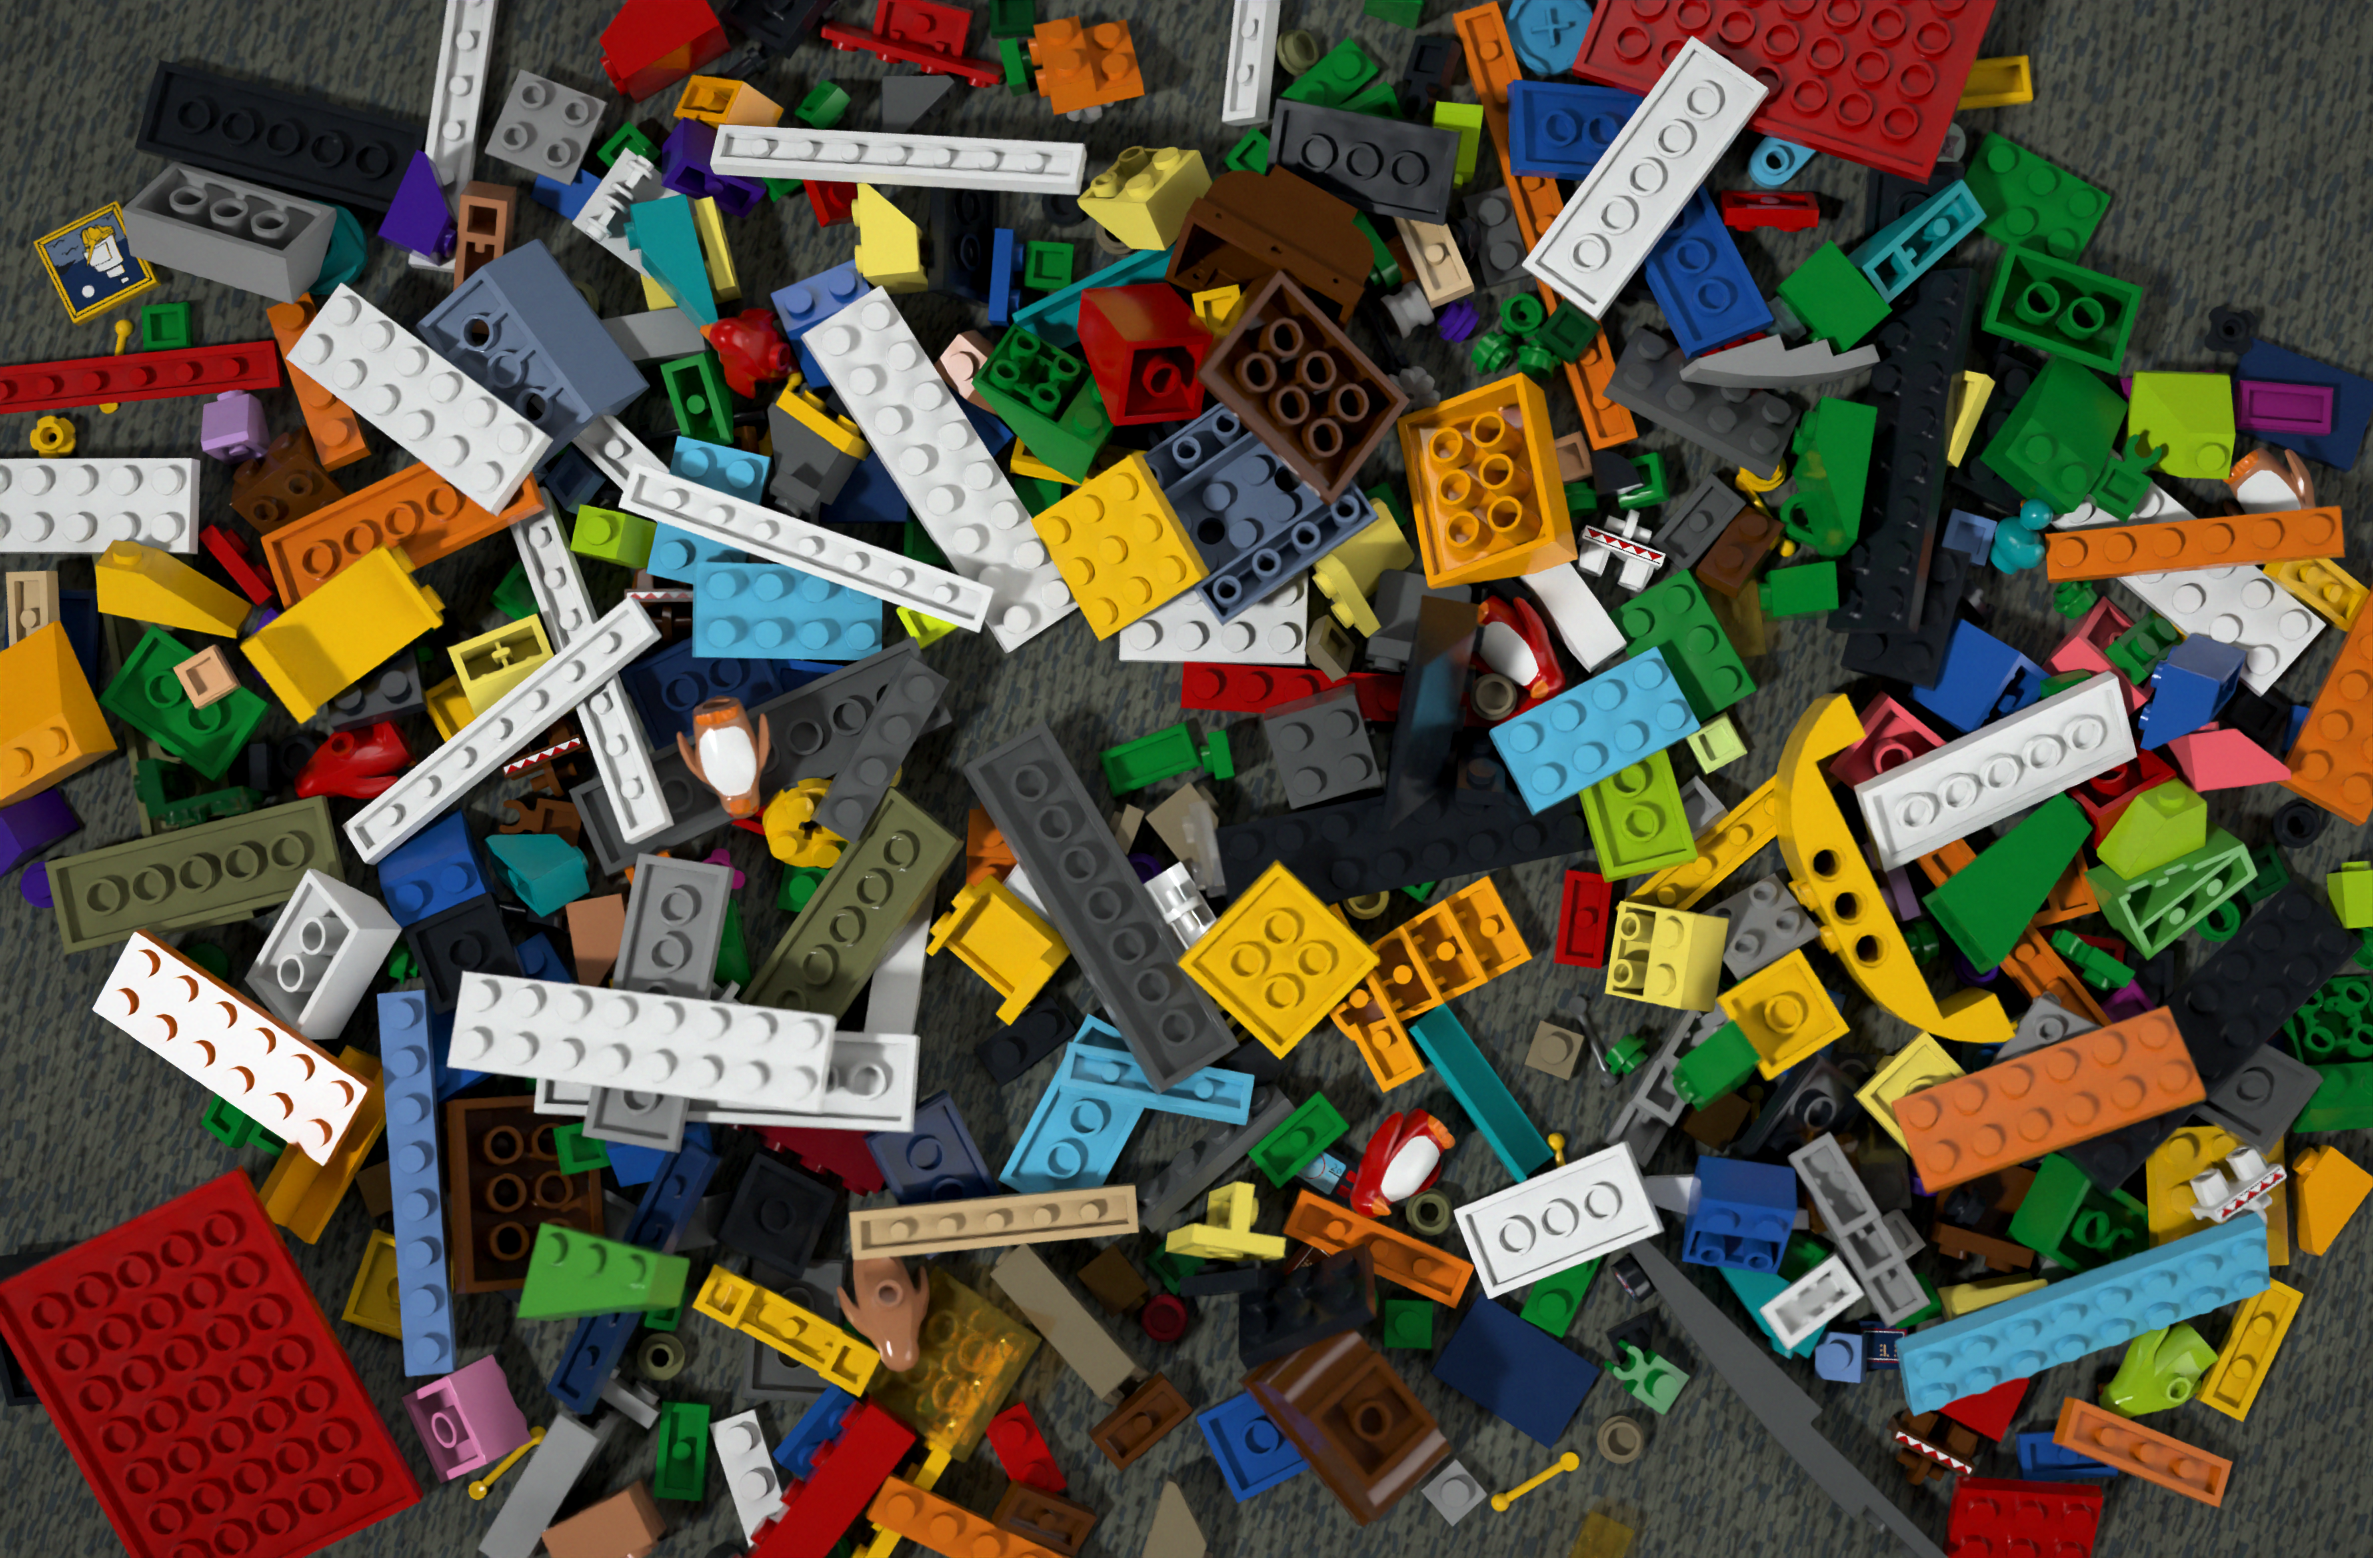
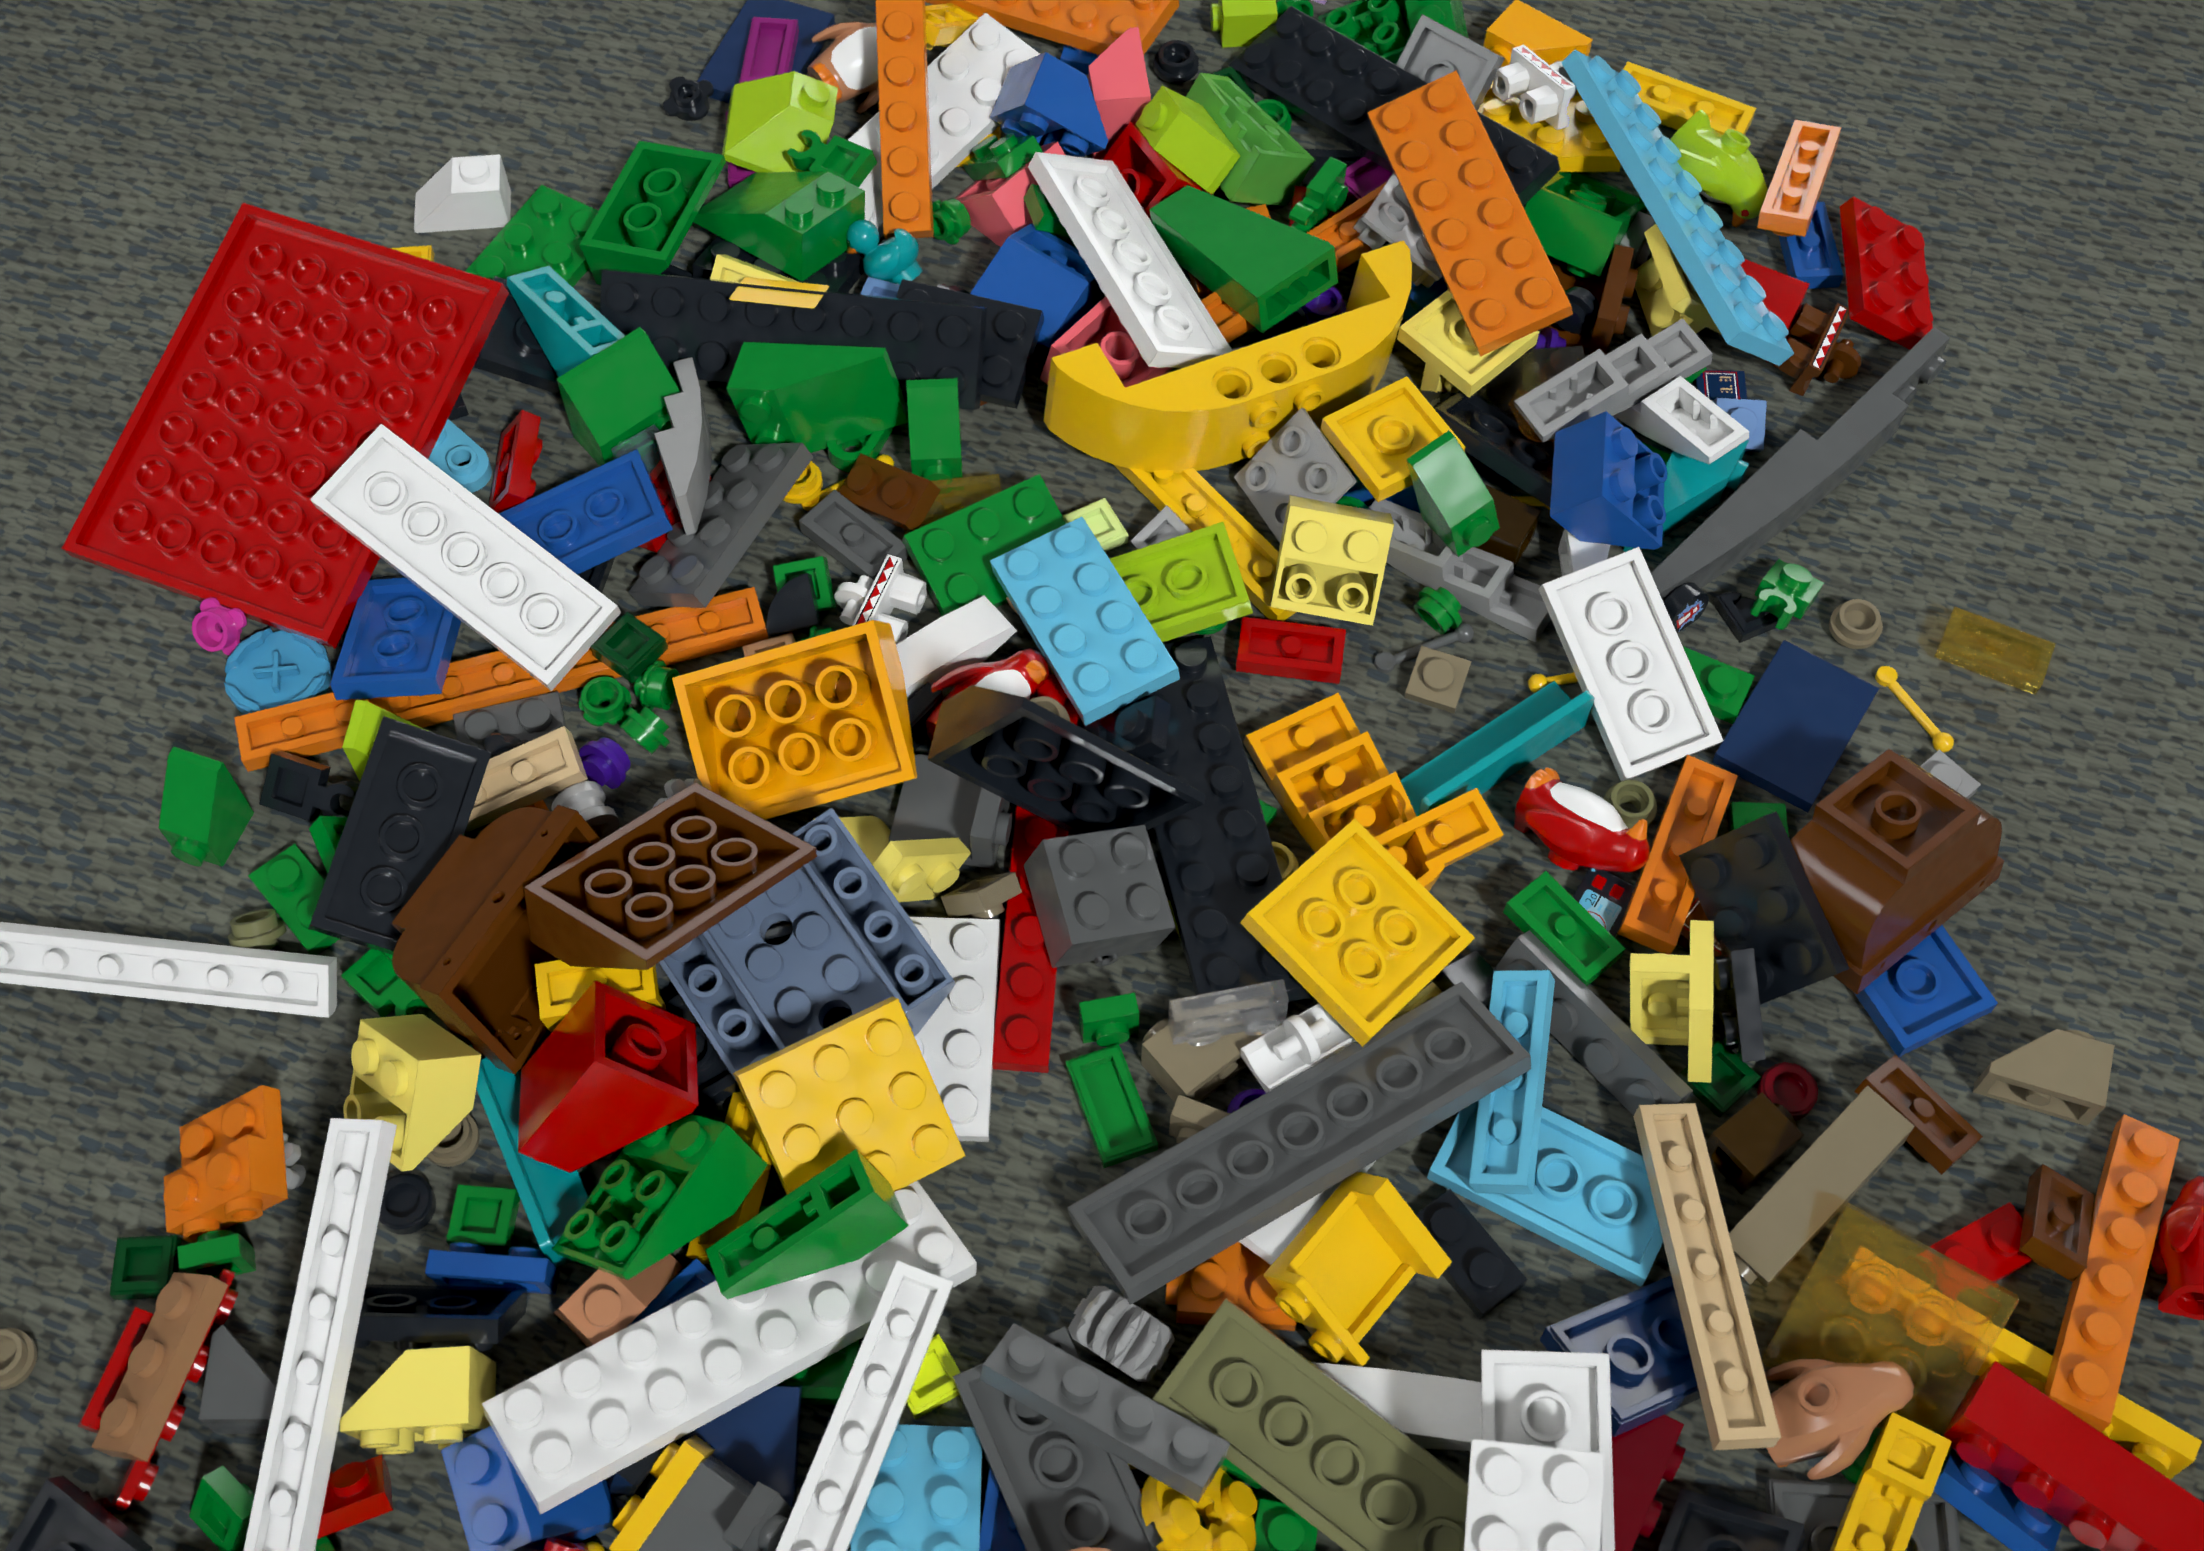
camera: 90 degrees left, 25 degrees down
(922, 41) = (159, 1366): none -> medium nougat plate
(941, 764) = (1121, 1333): none -> light grey gear
(1019, 520) = (810, 1230): none -> green slope
(1927, 436) = (778, 297): none -> yellow sticker
(2090, 123) = (464, 196): none -> white slope

